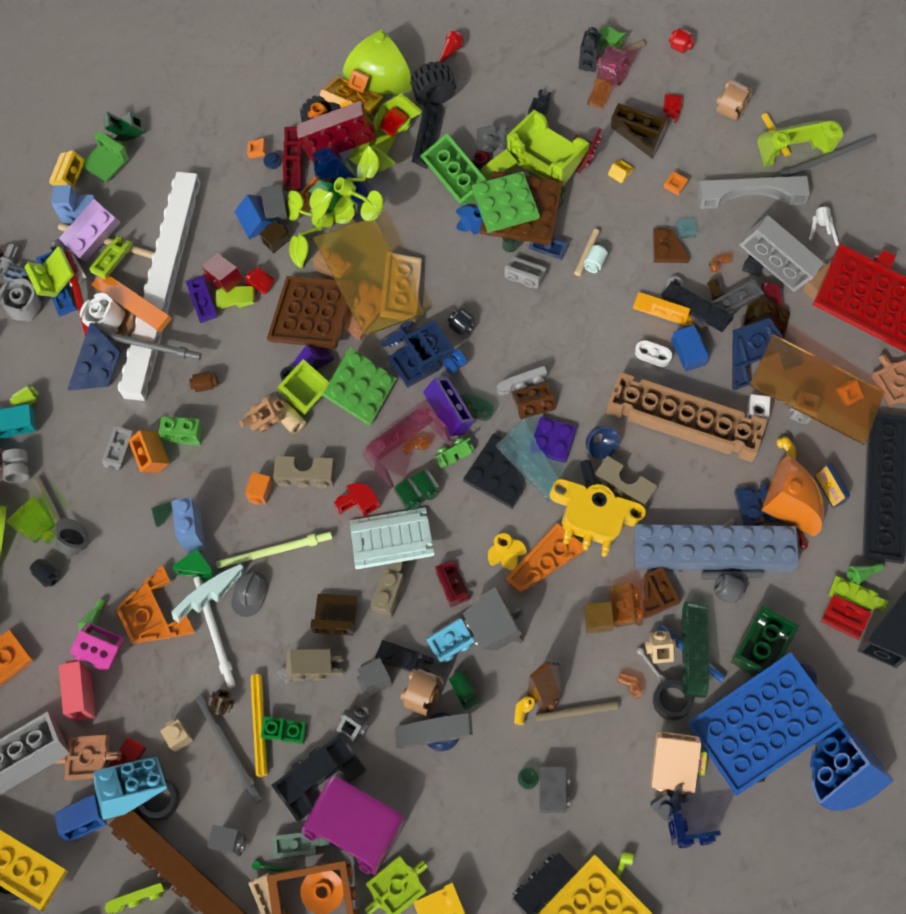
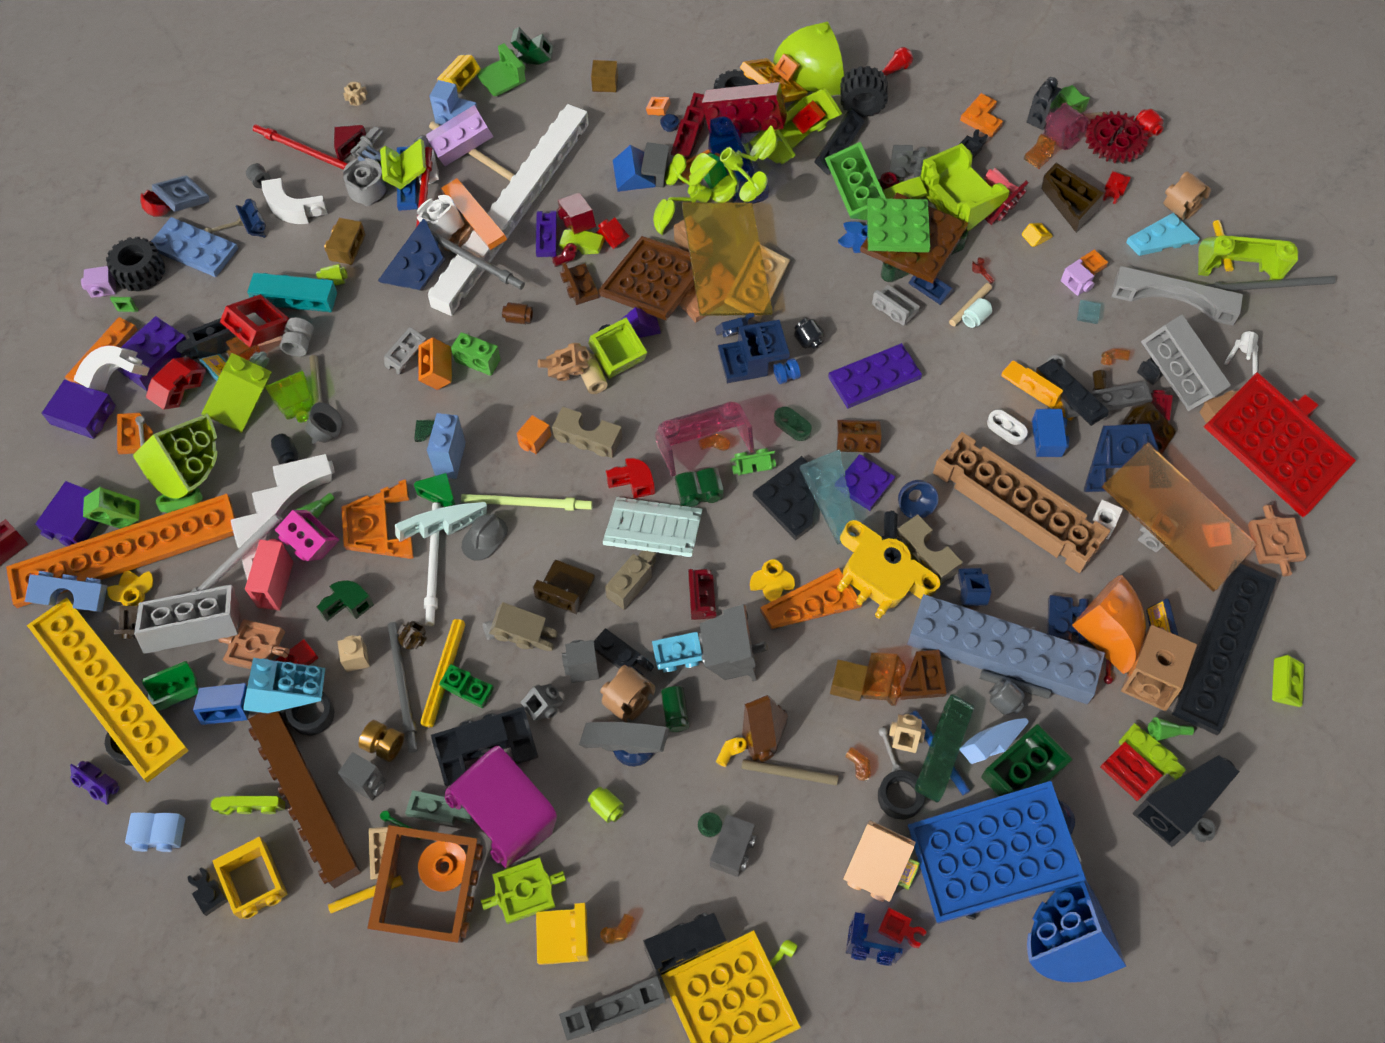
camera: 15 degrees right, 5 degrees down
(23, 361) = (345, 241): none -> pearl gold brick
(28, 818) = (171, 685): none -> green bracket
(43, 684) = (239, 554): none -> light grey bar
(62, 600) = (292, 481): none -> white arch
(111, 257) = (470, 166): lime hinge -> none
(151, 685) = (345, 595): none -> dark green brick
(199, 134) = (604, 76): none -> pearl gold piece
(222, 803) = (380, 740): none -> pearl gold wheel
(227, 313) = (566, 256): none -> dark red arm
(247, 335) = (579, 283): none -> reddish brown bracket
(274, 236) = (644, 194): dark brown brick -> none
(317, 109) = (732, 81): orange plate -> none
(359, 386) = (676, 364): bright green plate -> none
(438, 791) = (606, 804): none -> lime brick
(448, 406) = (763, 413): dark purple brick -> none
(486, 895) = (618, 933): none -> clear orange arm
(521, 381) = (851, 411): light grey hinge -> none
(528, 341) = (874, 375): none -> dark purple plate
(537, 76) = (979, 115): none -> orange plate
(570, 130) = (995, 176): none -> coral cone
(583, 217) = (979, 268): none -> clear red hand
(667, 247) = (1061, 325): reddish brown wing -> none
(668, 201) = (1078, 278): none -> lavender brick
(669, 804) = (855, 901): black plate -> none
(670, 65) = (1107, 129): none -> dark red gear
(673, 503) = (974, 587): none -> dark blue brick
(706, 810) = (896, 927): none -> red plate
(723, 140) = (1162, 234): none -> medium azure wing
(731, 630) = (992, 740): none -> light blue slope
(787, 444) = (1126, 567): yellow arm -> none
(843, 525) = (1159, 668): none -> medium nougat brick

